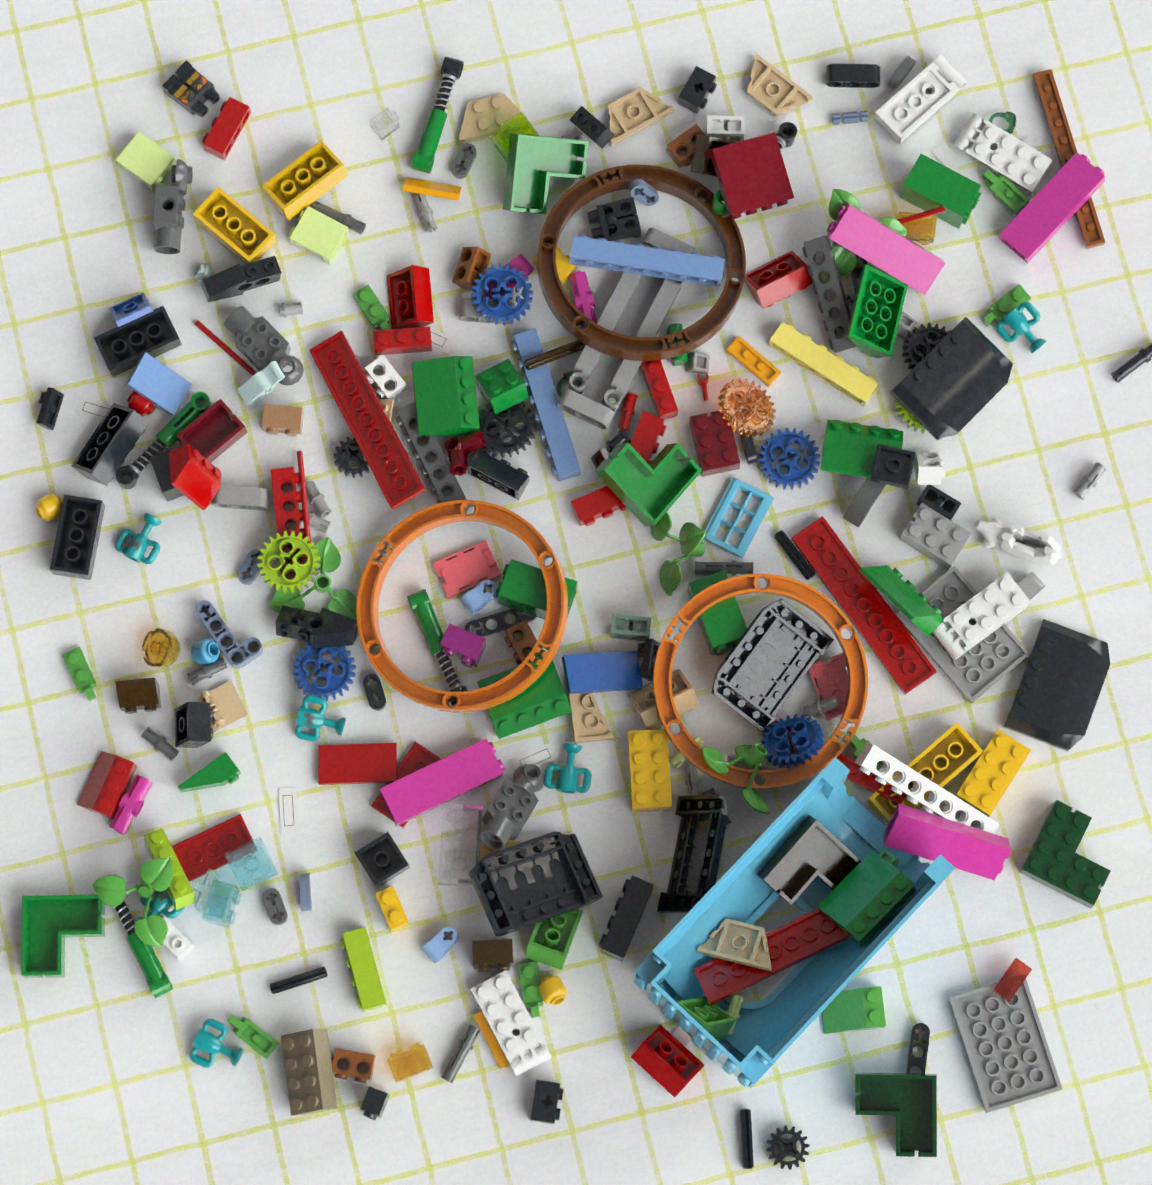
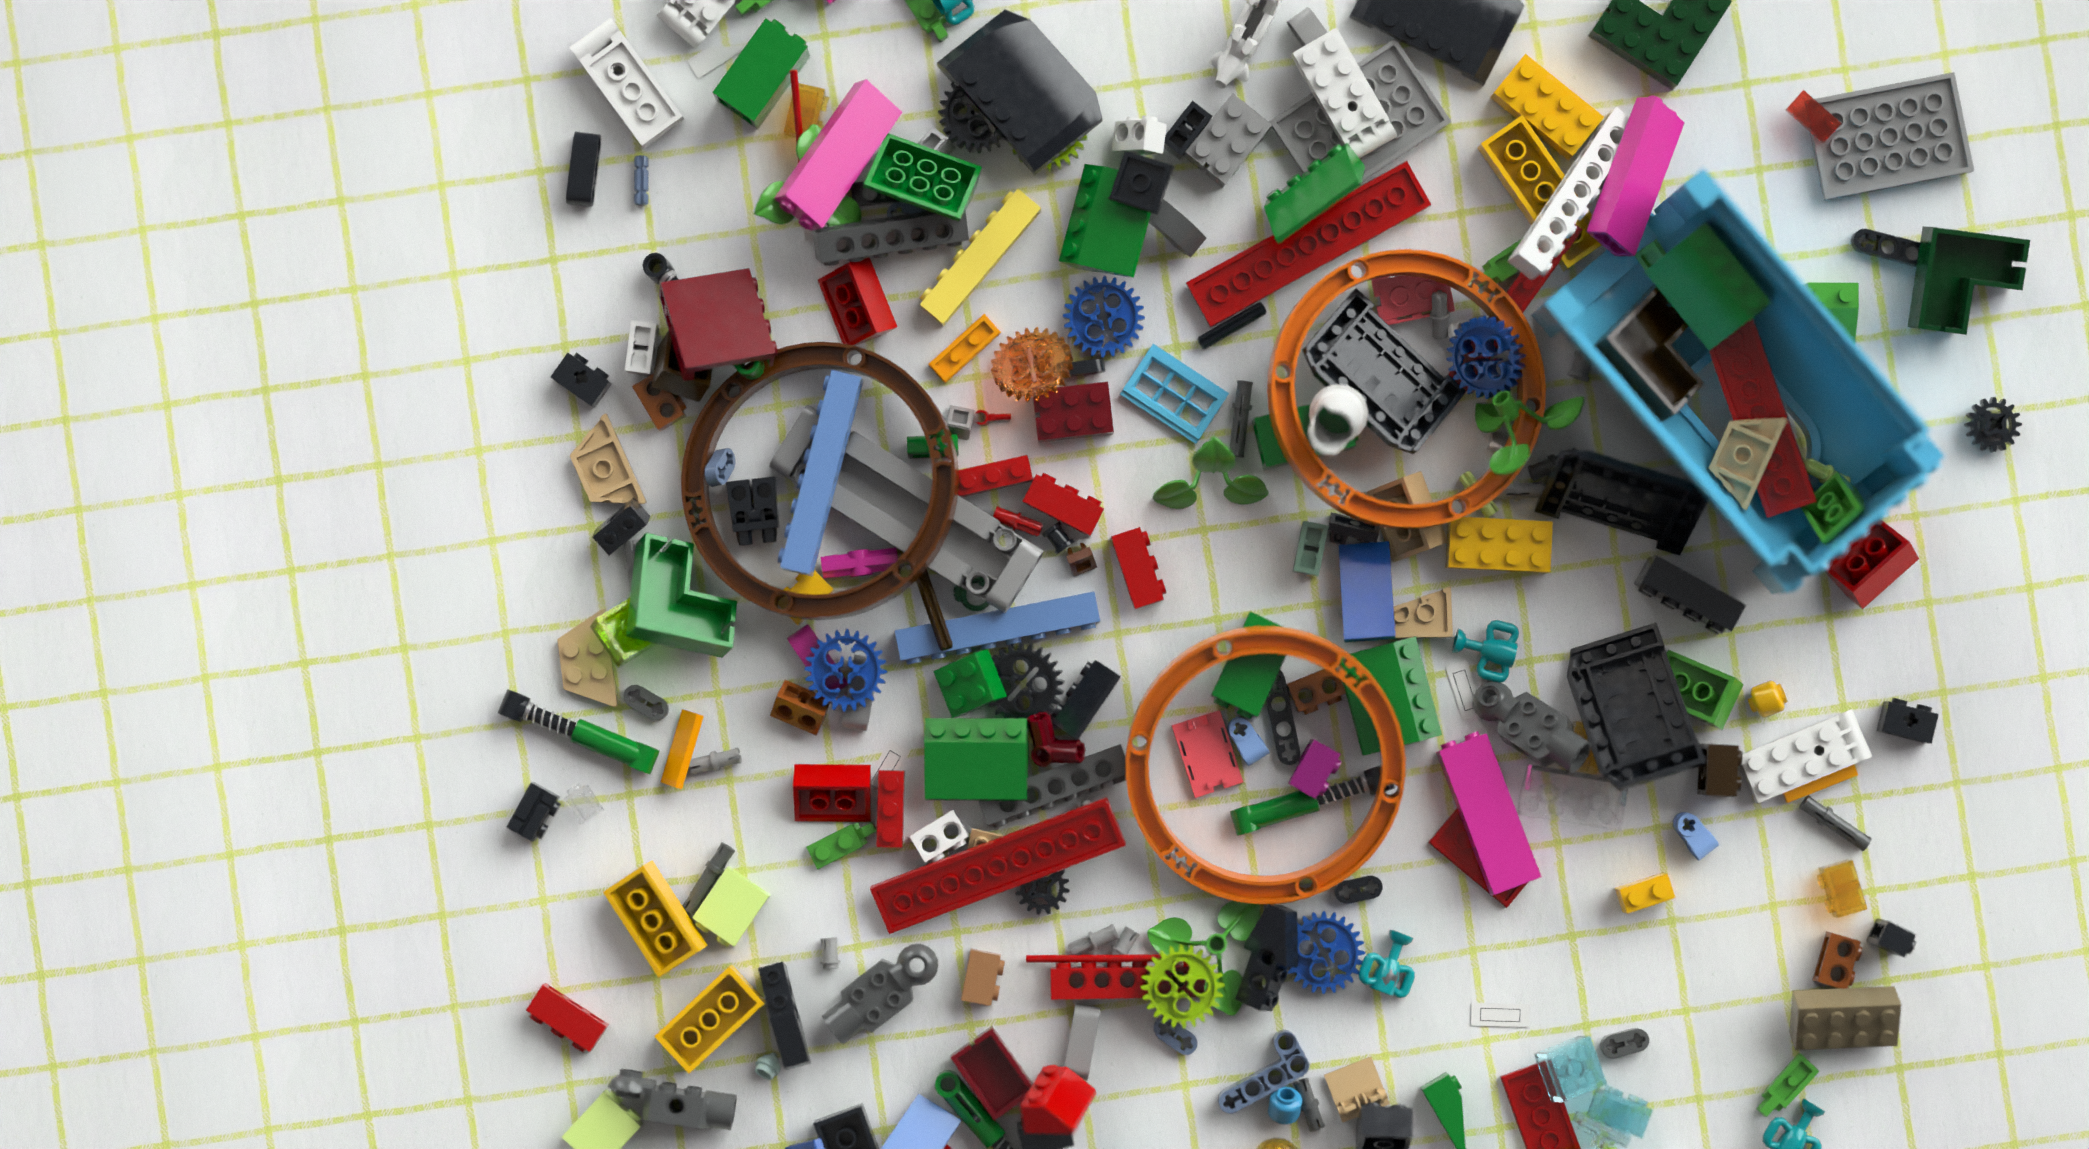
camera: 85 degrees left, 10 degrees up
(191, 89) = (511, 1052): black hips -> none
(231, 353) = (884, 1034): red axle -> none
(261, 384) = (934, 1001): light aqua piece -> none
(298, 980) = (1721, 1021): black axle -> none
(305, 892) = (1611, 1002): sand blue beam -> none
(357, 763) = (1451, 920): red tile -> none
(364, 969) = (1718, 935): lime brick -> none
(375, 89) = (534, 812): none -> black brick
(382, 860) = (1582, 900): black brick -> none
(530, 981) = (1754, 726): bright green hinge -> none
(648, 488) = (1131, 500): green piece -> none
(738, 631) = (1342, 400): none -> white piece
(746, 1139) = (1975, 474): black axle -> none
(774, 89) = (590, 277): tan wing -> none
(815, 430) = (1066, 276): white sticker -> none
(902, 71) = (585, 103): dark grey beam -> none

